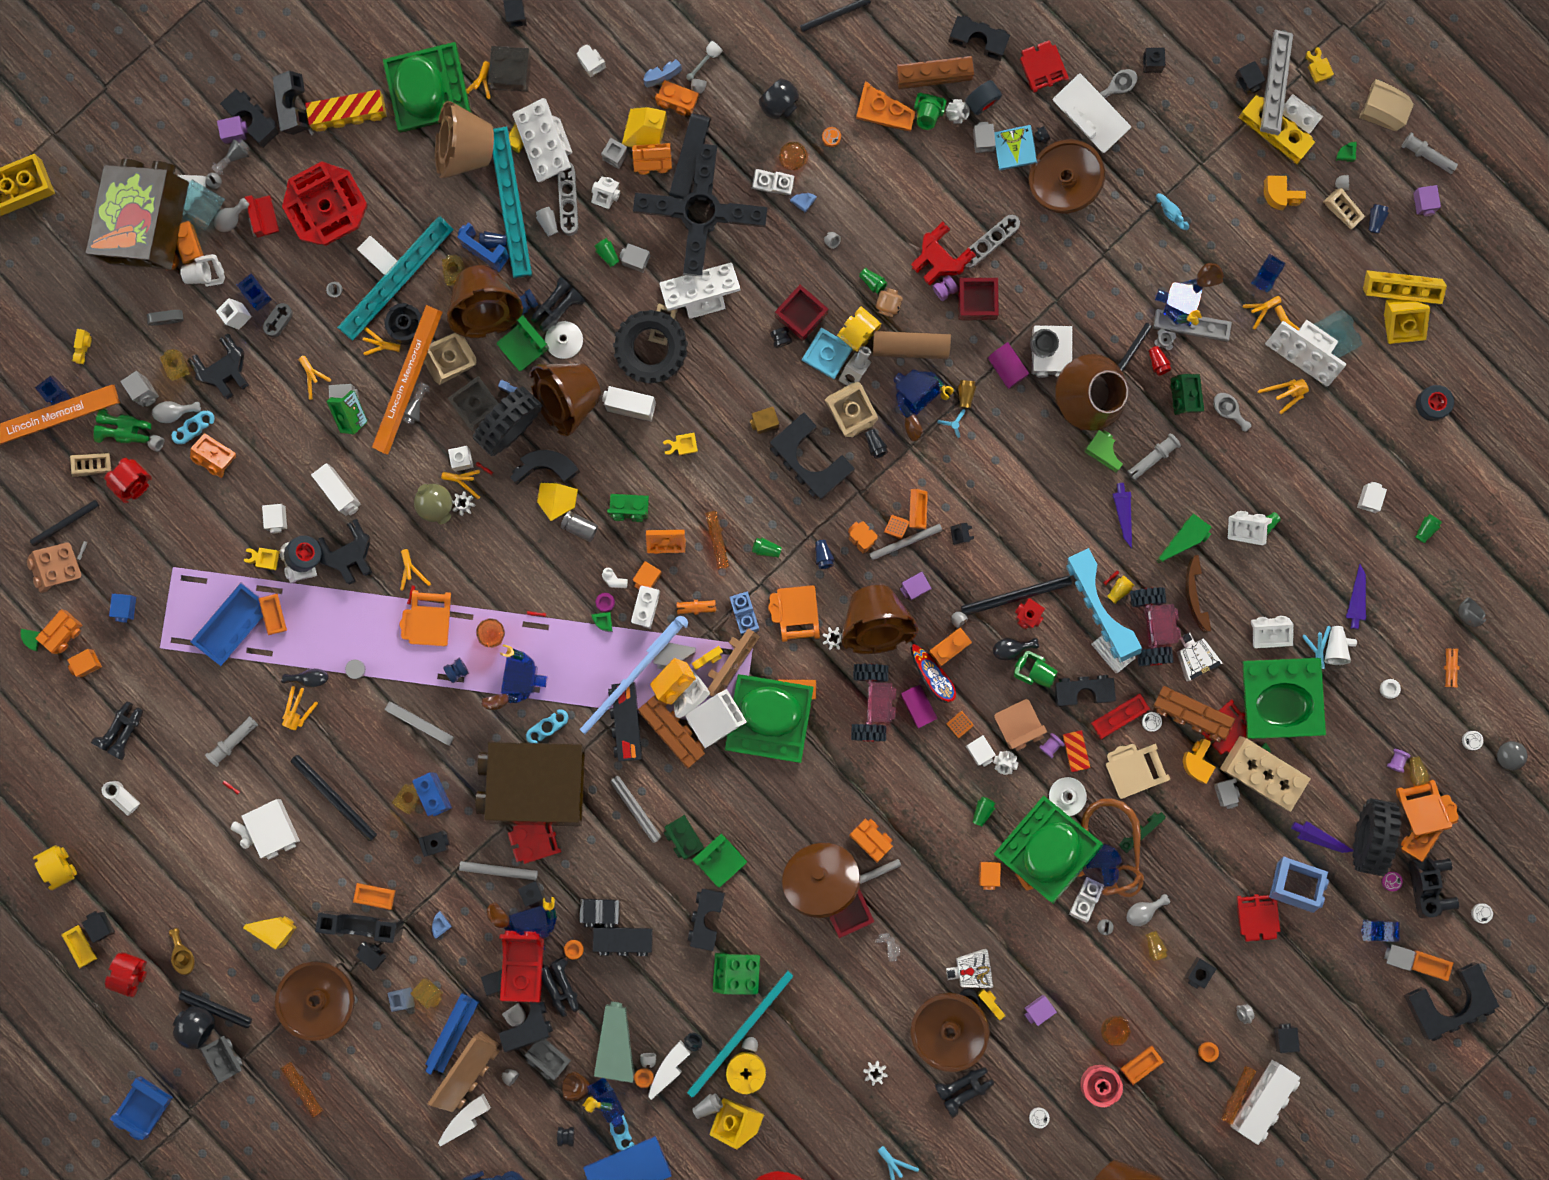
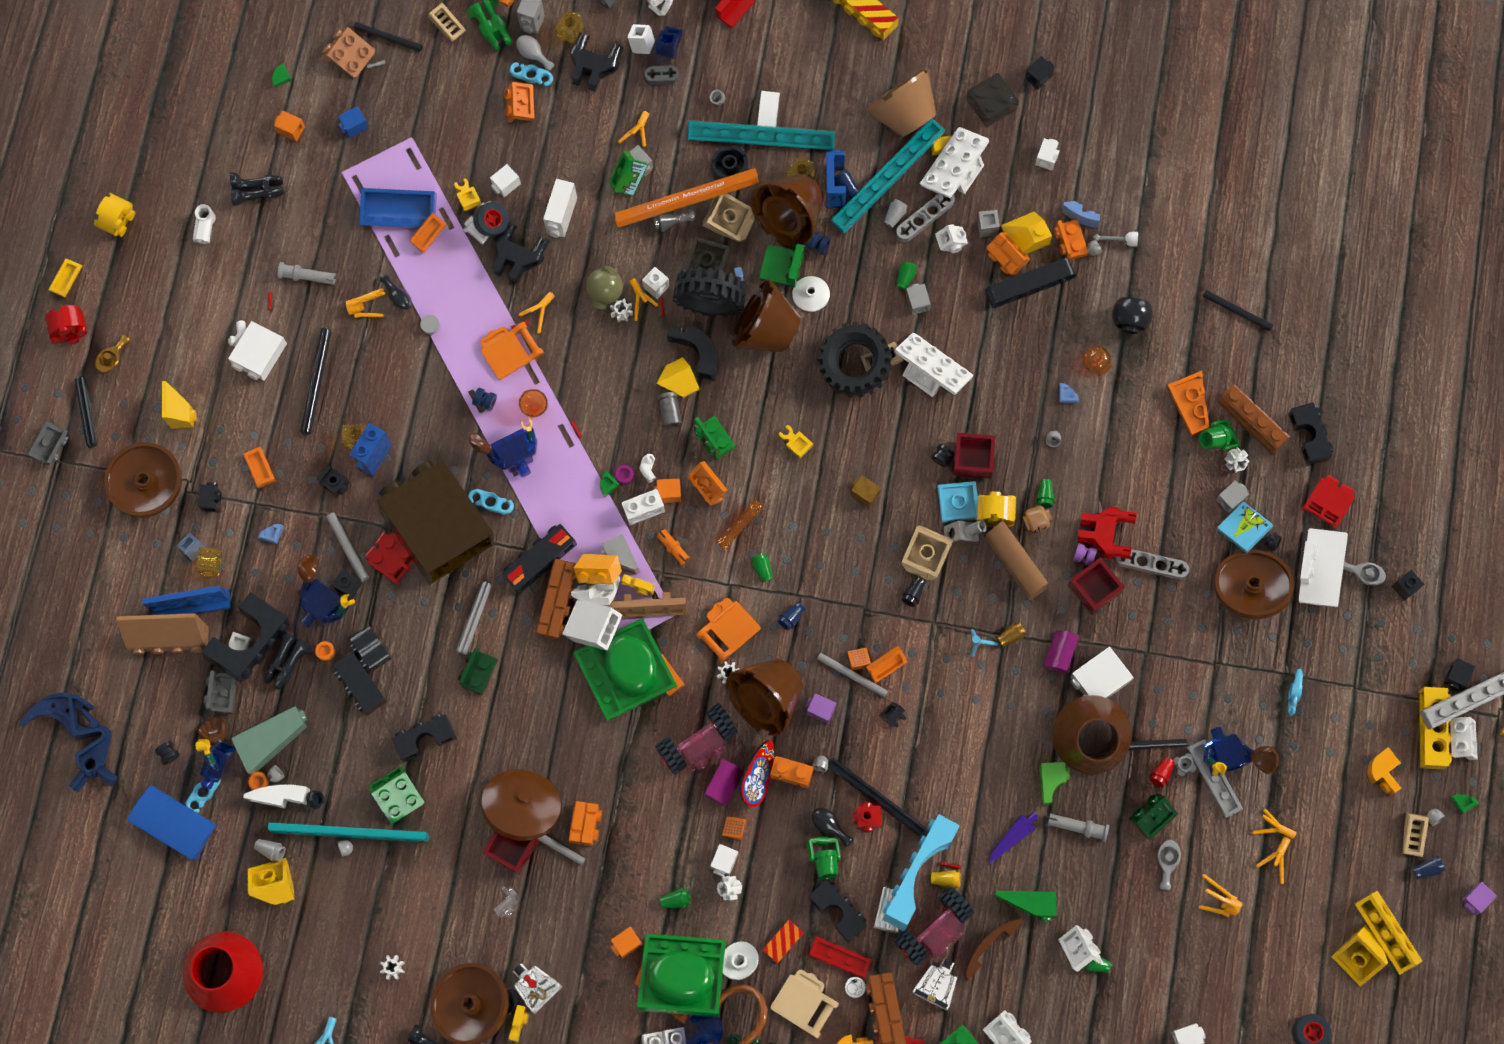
camera: 55 degrees right, 10 degrees down
(59, 632) = (300, 91): orange brick -> none
(98, 926) = (90, 280): black brick -> none
(128, 480) = (453, 55): red brick -> none
(156, 443) = (498, 57): light grey hinge -> none
(193, 1027) = (58, 404): black wheel -> none
(301, 1089) = (66, 521): clear orange pin -> none
(314, 188) = (782, 26): red piece -> none
(344, 923) = (226, 468): black arch -> none
(382, 344) = (702, 160): light orange plant -> none
(419, 723) = (422, 402): light grey beam -> none
(423, 83) = (930, 44): green piece -> none
(465, 1119) = (127, 663): white slope -> none
(482, 77) = (969, 85): light orange plant -> none
(509, 1076) = (186, 675): light grey hinge -> none
(521, 967) = (280, 615): red bracket -> none
(572, 297) = (848, 274): black piece -> none
(629, 403) = (797, 376): white brick -> none
(653, 651) = (612, 536): light blue bar -> none
(702, 192) = (1009, 310): black piece -> none
(720, 860) = (480, 712): green bracket -> none
(744, 612) = (697, 588): medium blue slope -> none
(748, 1084) = (329, 859): yellow brick -> none
(772, 182) = (1062, 359): white slope -> none
(820, 482) = (848, 571): black arch -> none
(831, 137) = (1136, 378): orange tile -> none
(862, 536) = (828, 634): orange brick -> none
(914, 394) = (979, 592): clear blue torso -> none
(983, 97) = (1264, 471): black wheel -> none
(1019, 725) = (770, 877): nougat bracket -> none
(1044, 343) = (1100, 663): dark grey hair -> none
(1051, 745) = (772, 916): medium lavender bush -> none
(1268, 273) = (1307, 808): clear blue brick -> none
(1308, 350) = (1270, 888): white bracket -> none
(1341, 328) = (1302, 906): clear light blue slope -> none

